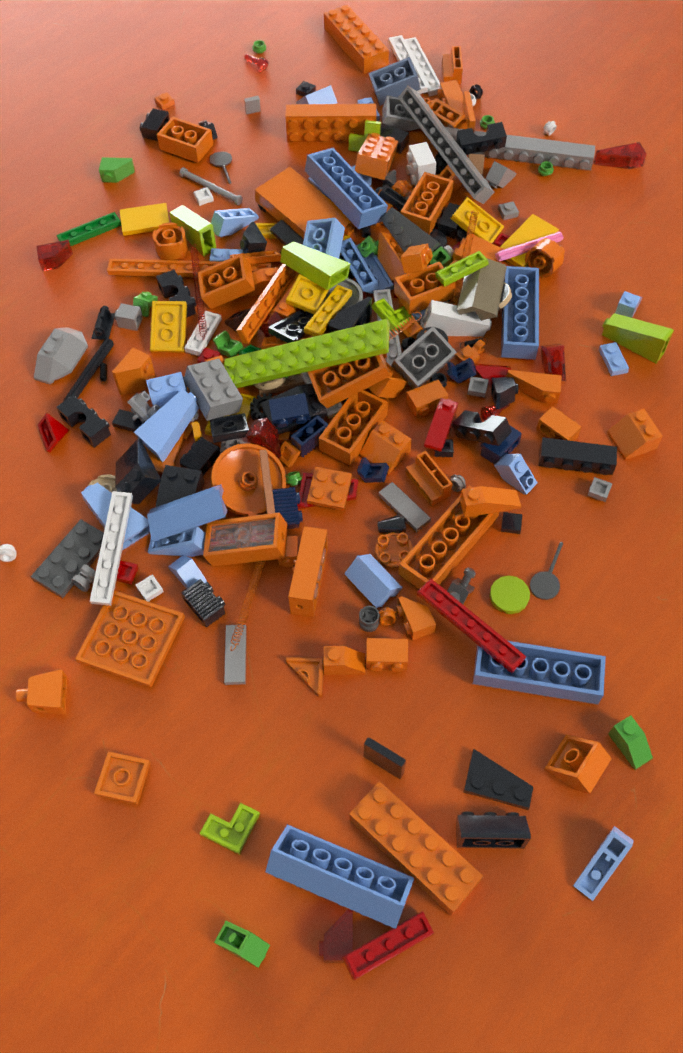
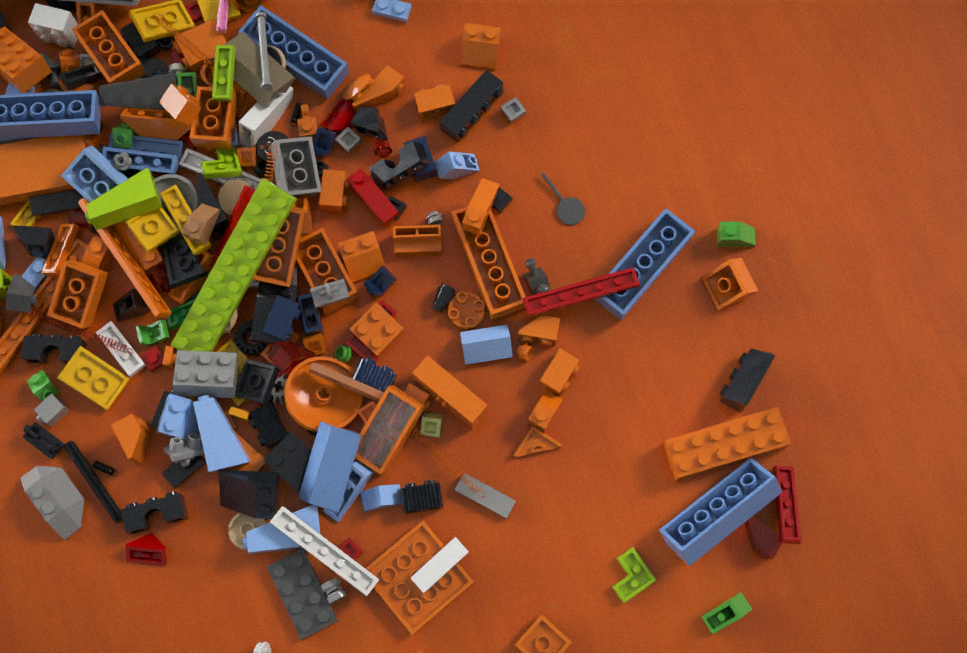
camera: 60 degrees left, 15 degrees up
(149, 588) = (378, 537): white plate -> none
(149, 646) = (439, 565): none -> white tile
(201, 248) = (20, 295): none -> dark grey slope
(275, 577) = (431, 424): none -> yellowish green slope
(329, 316) = (200, 224): none -> medium nougat slope
(333, 431) = (329, 293): none -> light grey hips
(347, 253) = (122, 166): none -> light grey plate
(370, 615) = (519, 368): dark grey wheel -> none
(384, 758) = (649, 425): tile -> none
(404, 506) = (429, 277): light grey tile -> none
(474, 296) = (266, 85): none -> light grey bar
(496, 783) = (708, 354): black wing -> none
(509, 594) = (563, 243): lime tile -> none
(533, 367) = (354, 89): none -> orange dish
(554, 360) = (364, 59): clear red slope -> none
(604, 863) = (810, 313): light blue slope -> none

